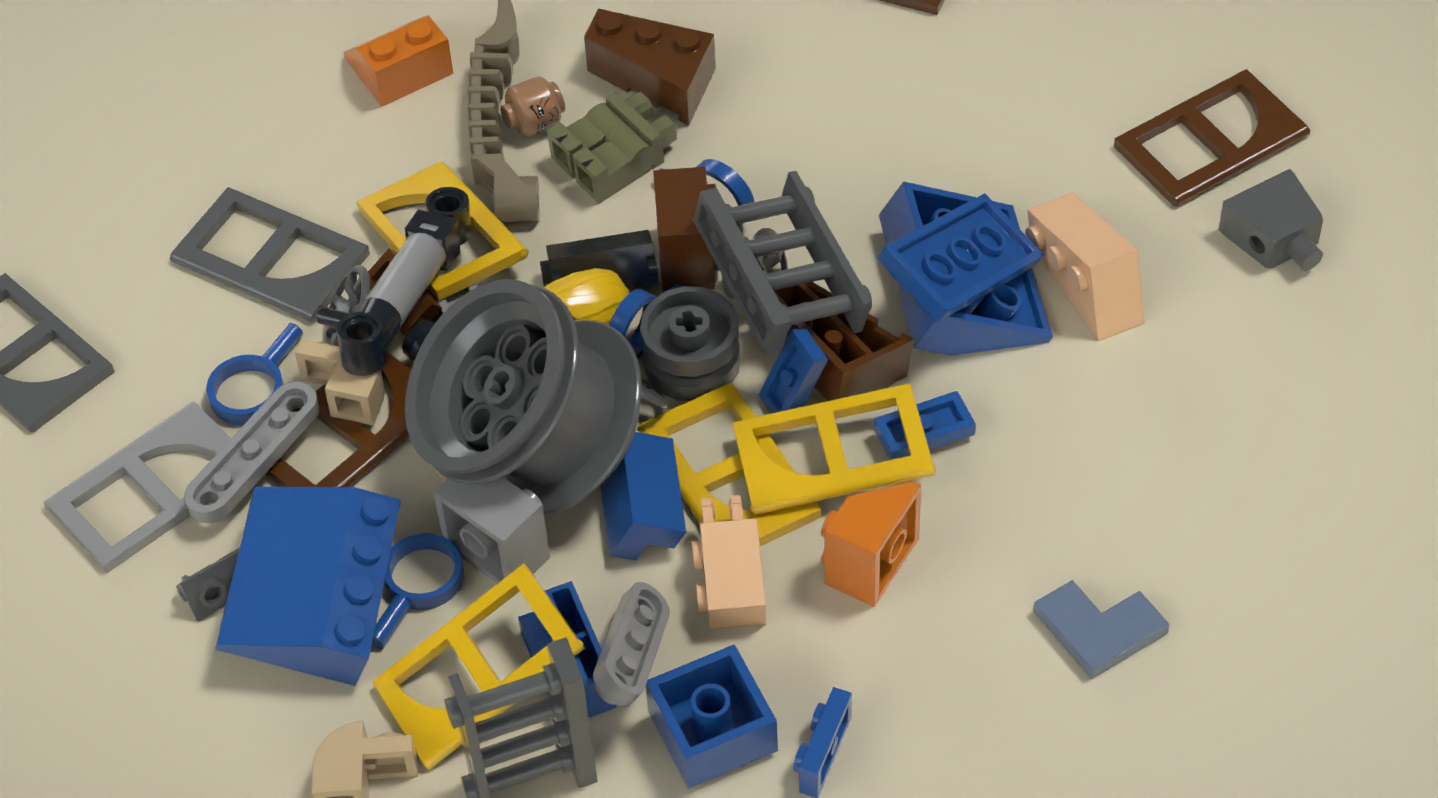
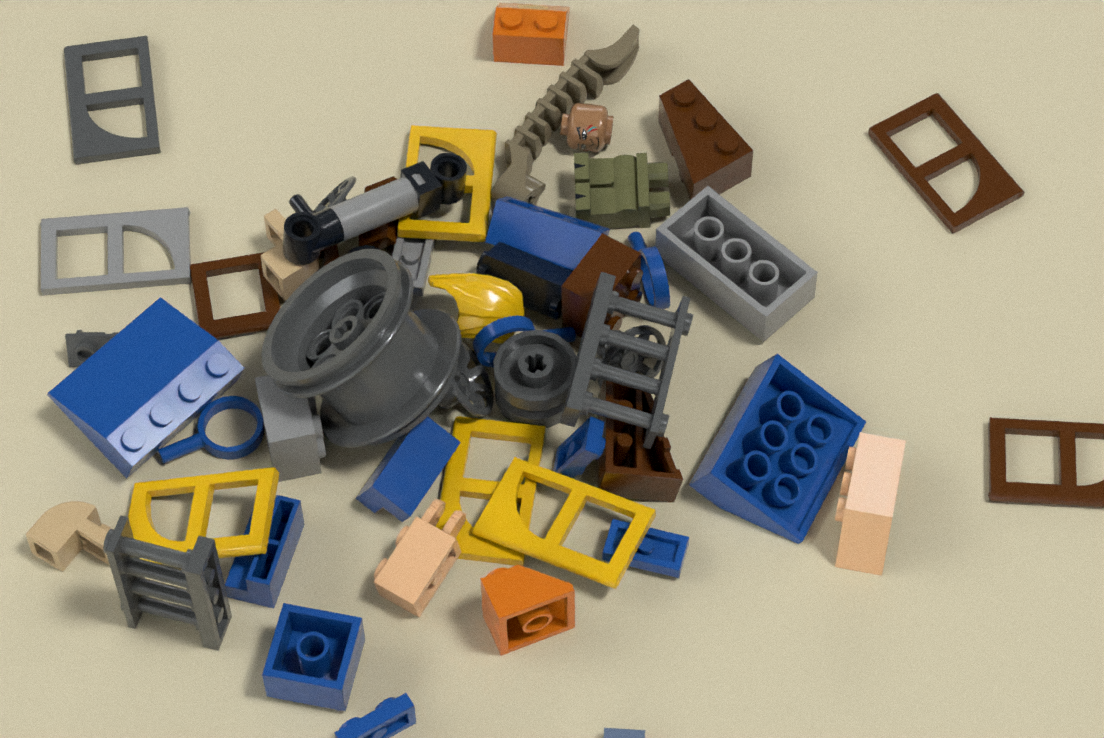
camera: 35 degrees right, 5 degrees up
(251, 452) = (188, 269): light grey plate -> none
(265, 364) = (256, 209): blue piece -> none
(296, 295) = (318, 172): dark grey window -> none
(585, 214) = (542, 232): none -> blue brick
(631, 645) = (301, 571): light grey plate -> none
(784, 131) = (736, 263): none -> light grey brick
(960, 257) = (765, 438): blue plate -> none
(1274, 222) = (1044, 562): dark grey torso -> none

